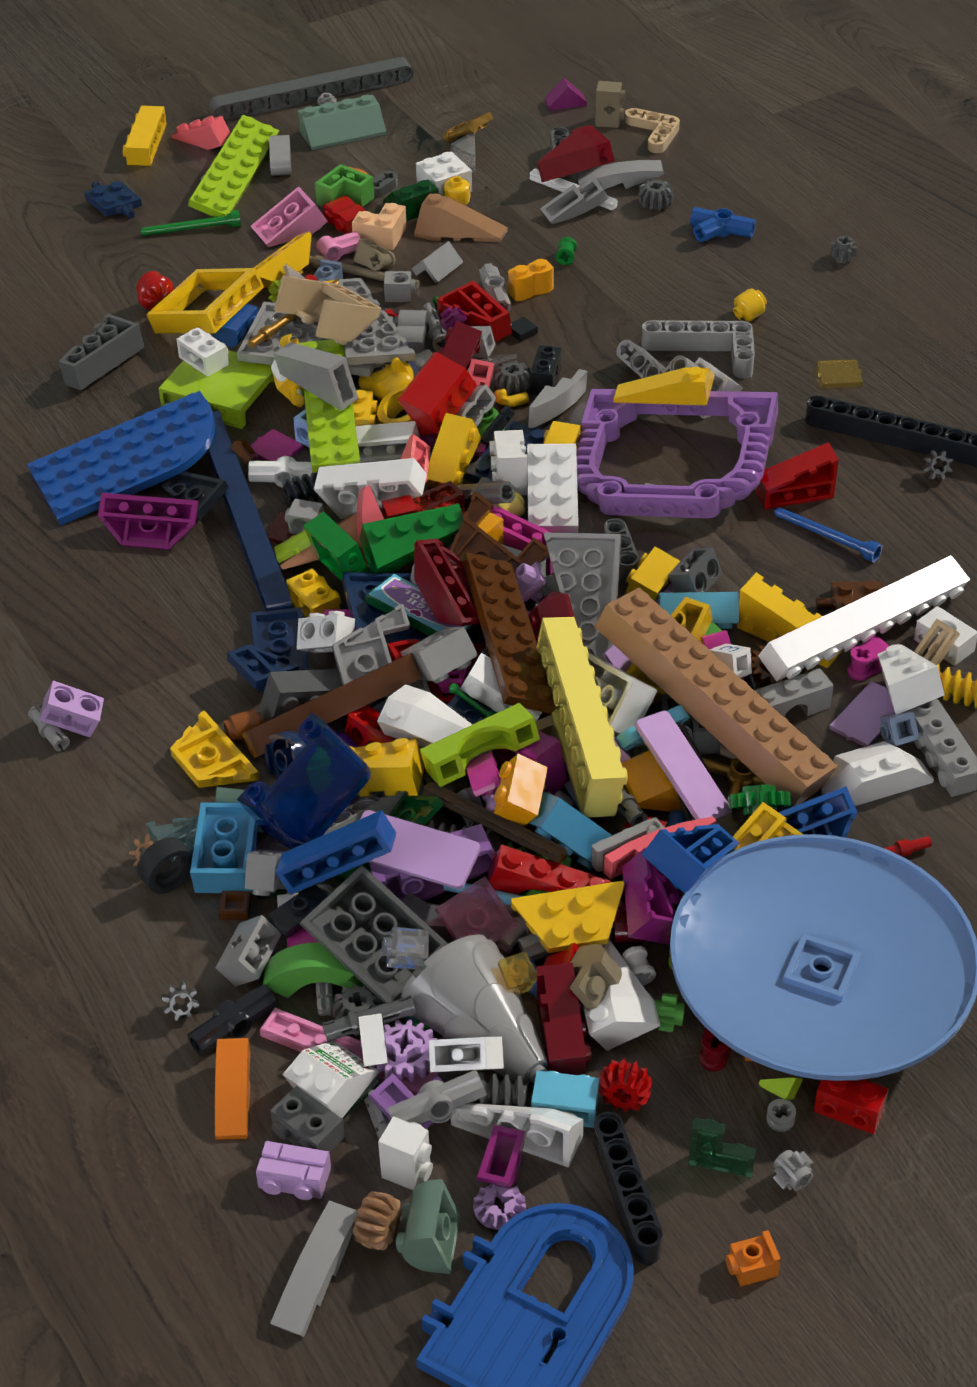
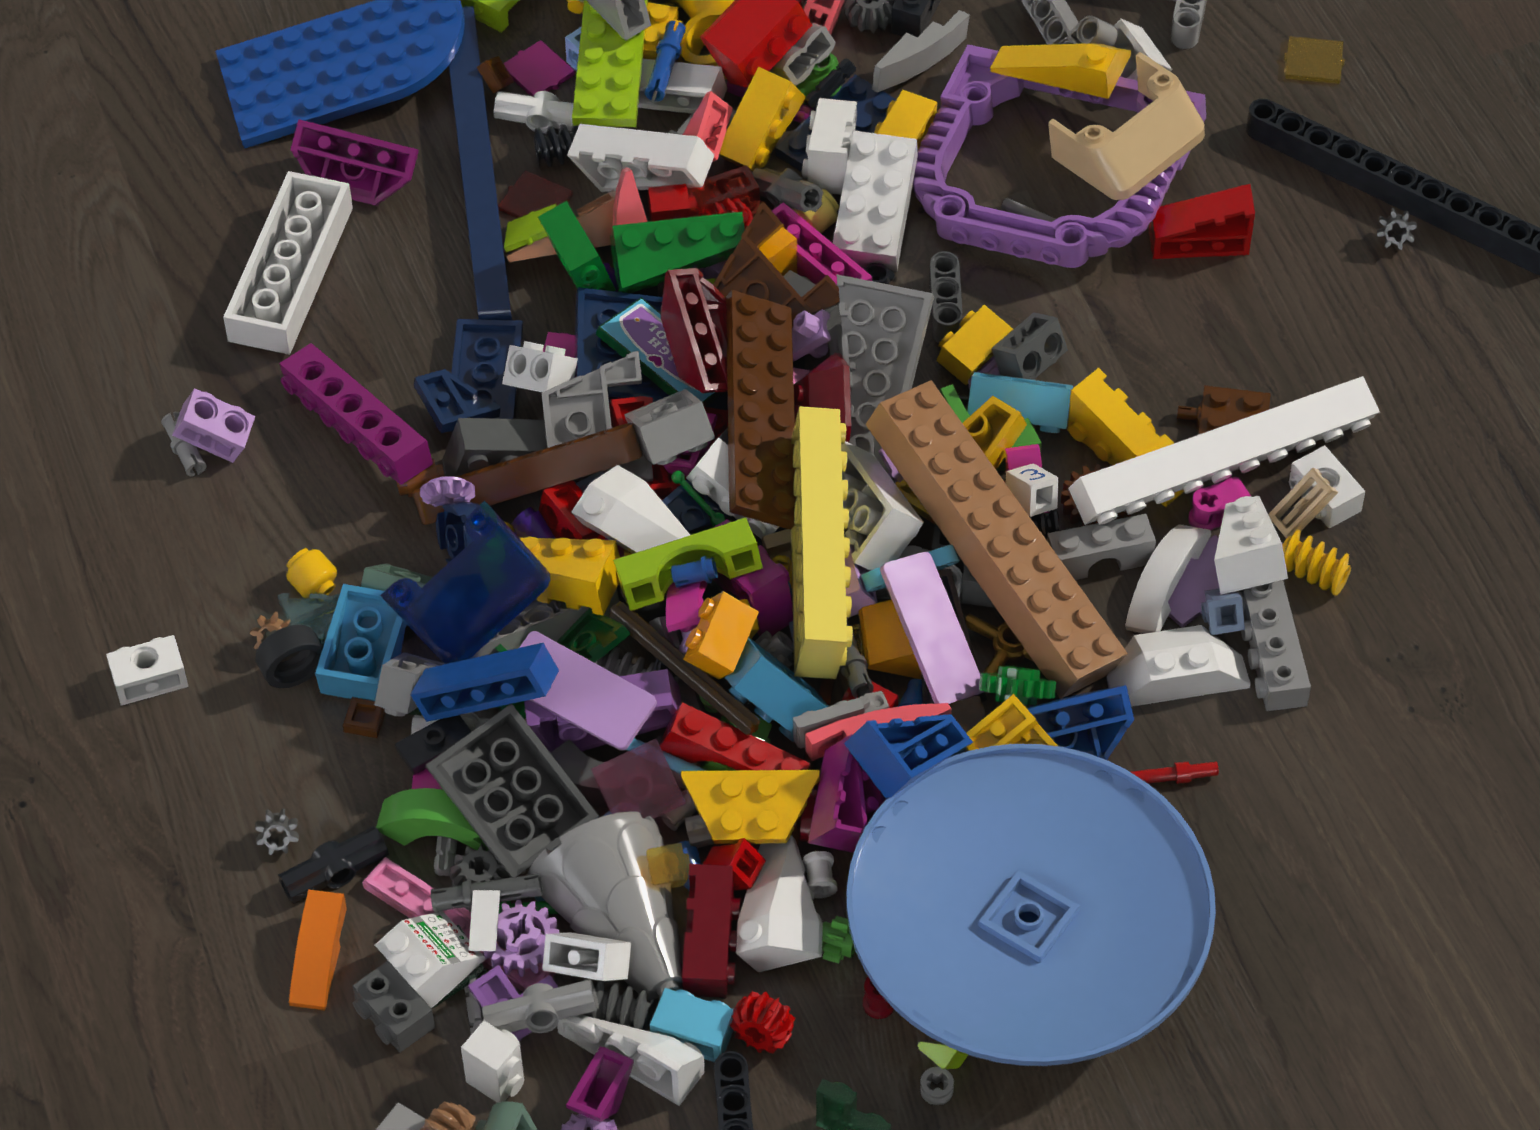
camera: 10 degrees right, 10 degrees up
(47, 894) = (163, 675): none -> white brick
(110, 592) = (288, 263): none -> white brick
(170, 803) = (311, 573): none -> yellow head
(185, 685) = (355, 414): none -> magenta brick
(196, 487) = (421, 127): black wing -> none
(211, 756) = (372, 515): yellow wing -> none
(248, 950) = (367, 782): light grey brick -> none
(272, 722) = (446, 491): none -> lavender gear
(293, 1170) = (367, 1059): lavender brick -> none
(301, 513) = (552, 186): light grey brick -> none
(312, 593) = (540, 305): yellow brick -> none
(373, 417) = (667, 52): none -> blue pin
(406, 948) = (543, 815): clear brick -> none
(487, 749) = (694, 572): none -> blue pin
(510, 401) = (859, 41): yellow arm -> none
(593, 974) = (756, 882): dark tan brick -> none
(742, 428) = (1139, 149): none -> tan windscreen
(842, 714) = (1161, 575): none -> white slope
(852, 1102) = (1026, 1089): red brick -> none
(869, 550) = (1268, 344): blue piece -> none

